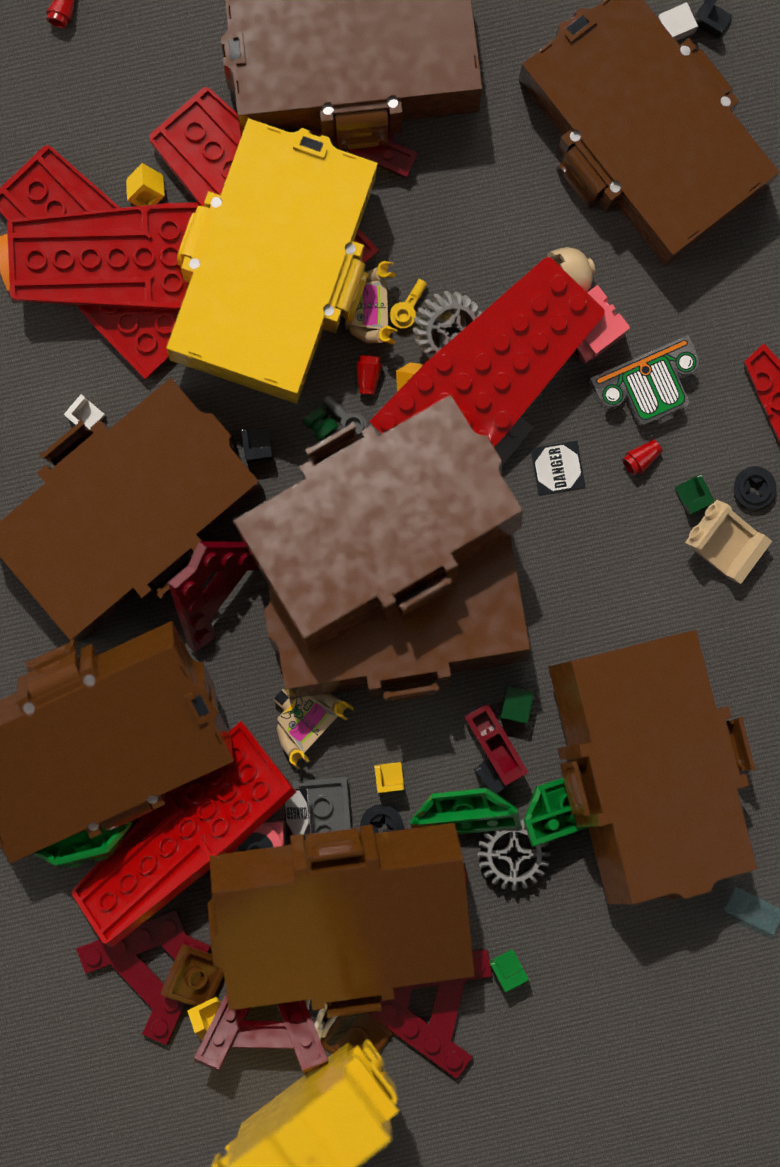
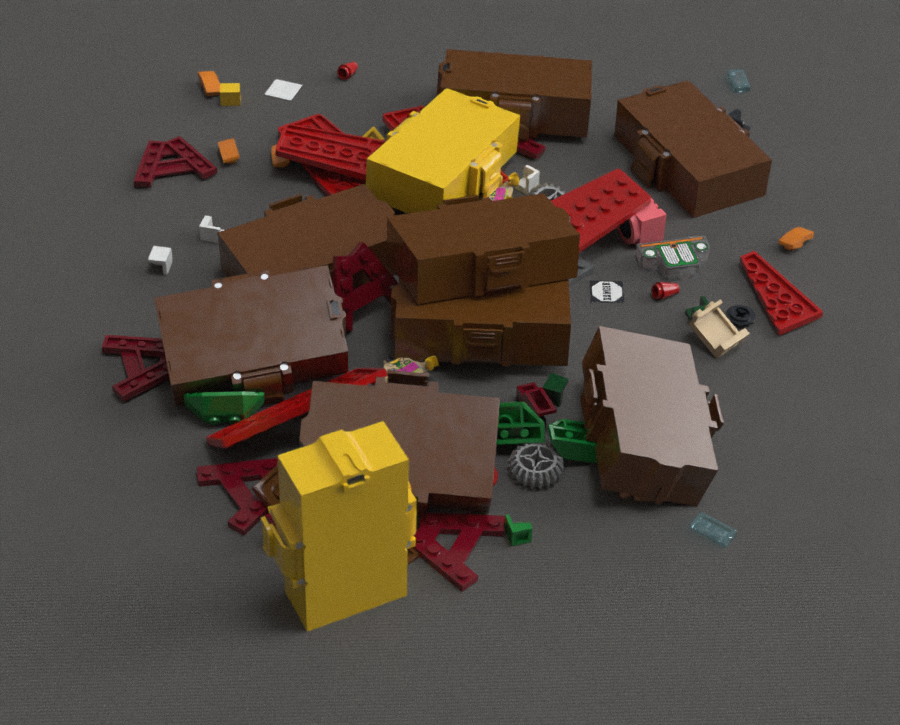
camera: 10 degrees right, 45 degrees down
(403, 245) = (529, 181): none -> white panel

